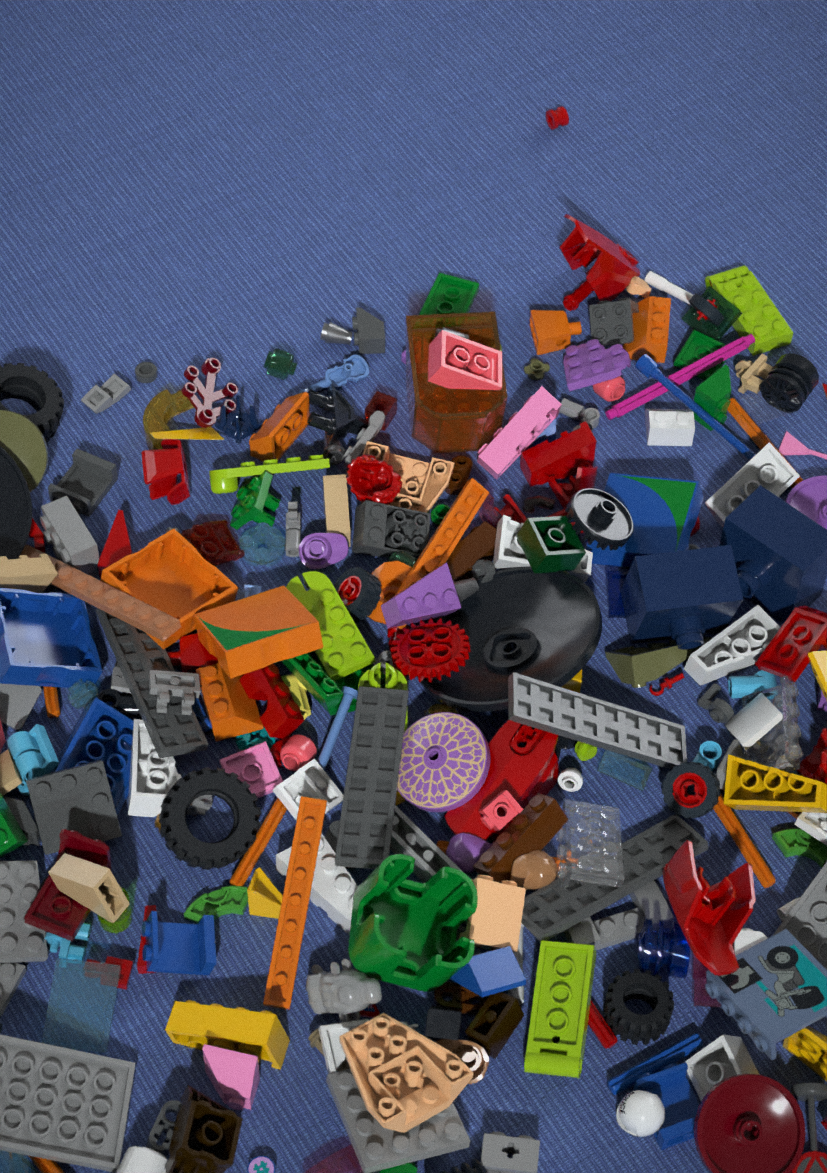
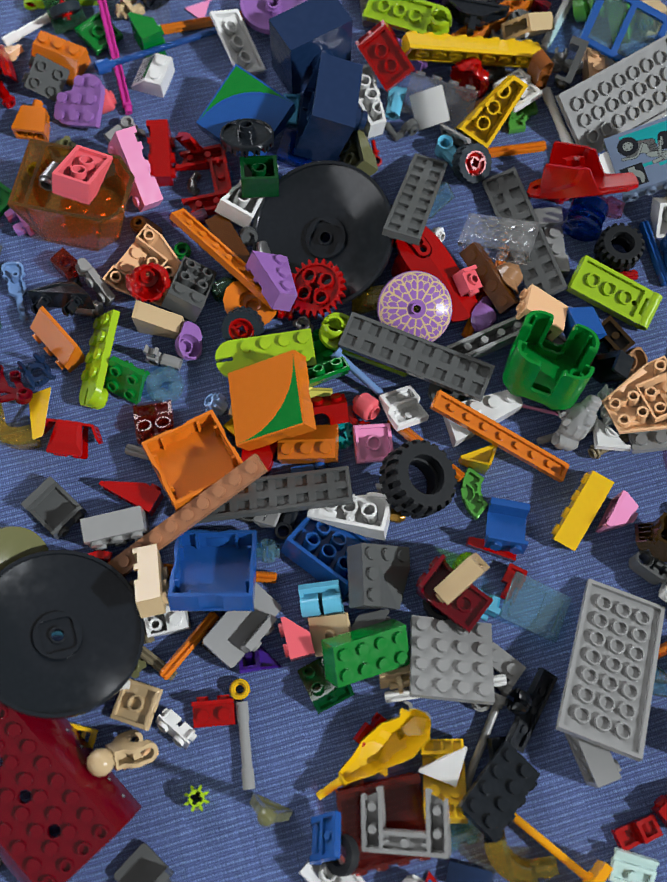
camera: 75 degrees left, 20 degrees up
(174, 684) = (292, 475): light grey plate -> none

